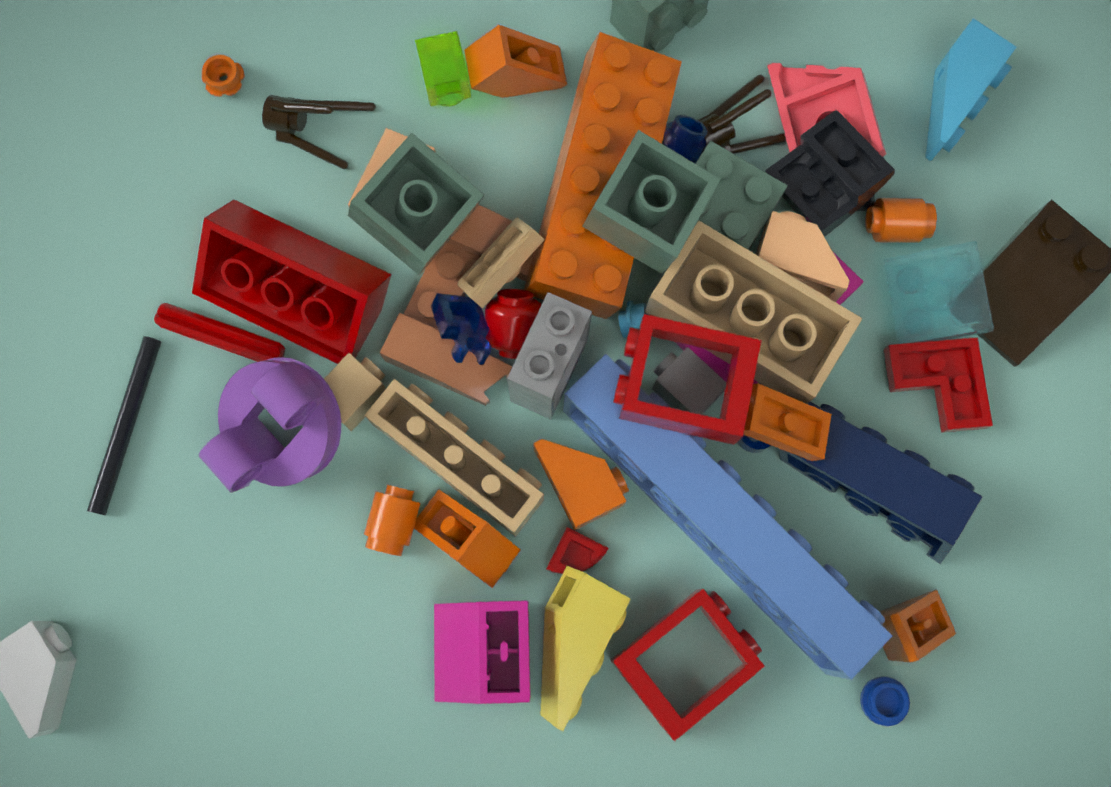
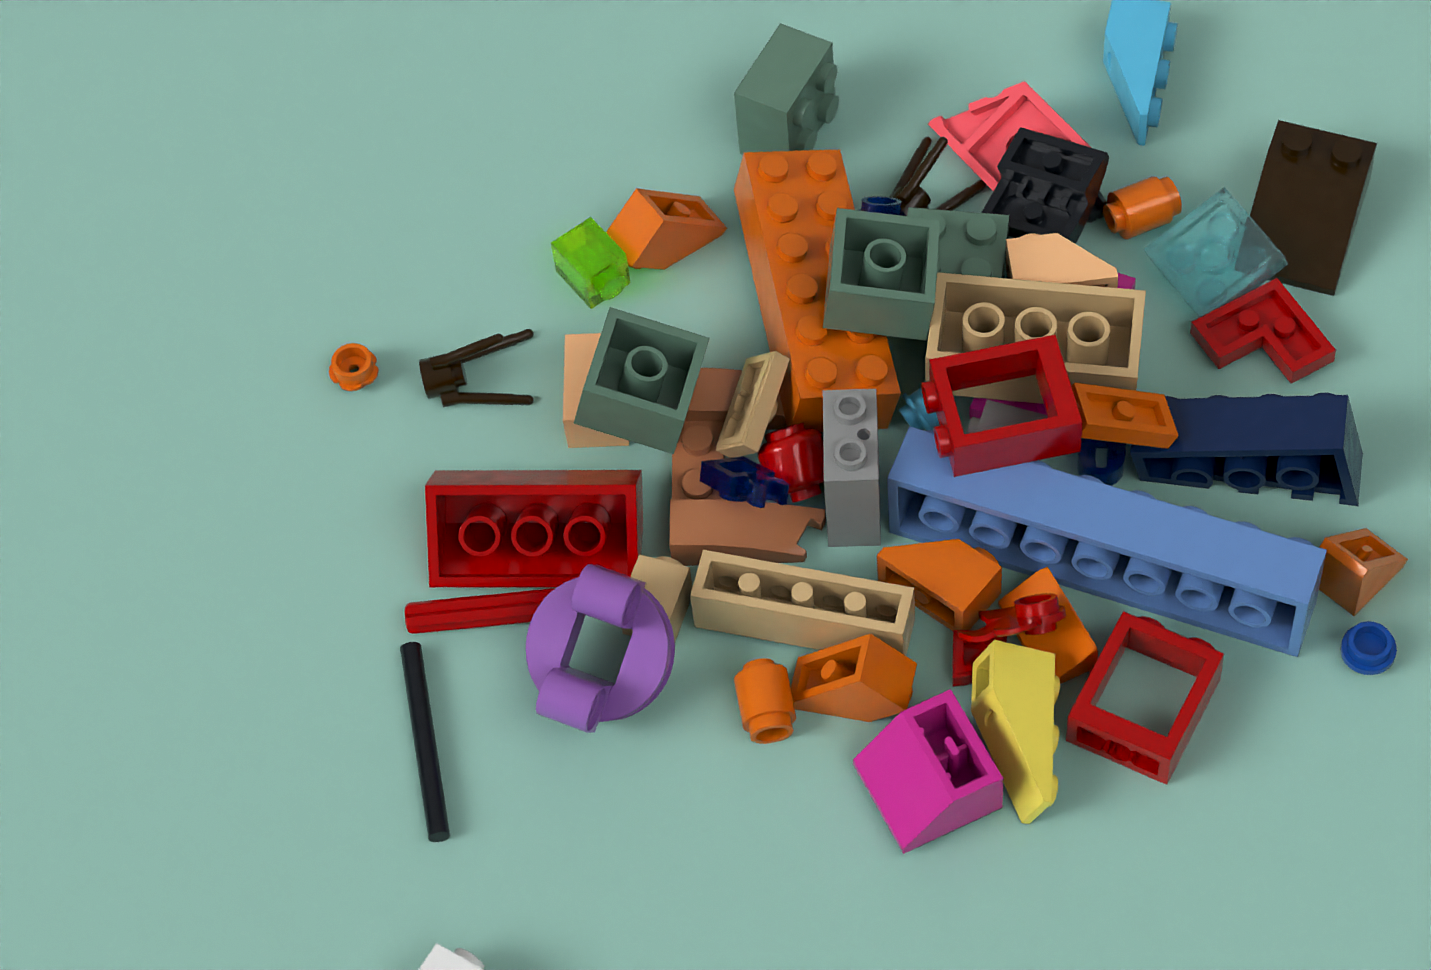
camera: 15 degrees left, 20 degrees down
(612, 555) = (1030, 614): none -> red plate
(642, 560) = (1070, 642): none -> orange slope

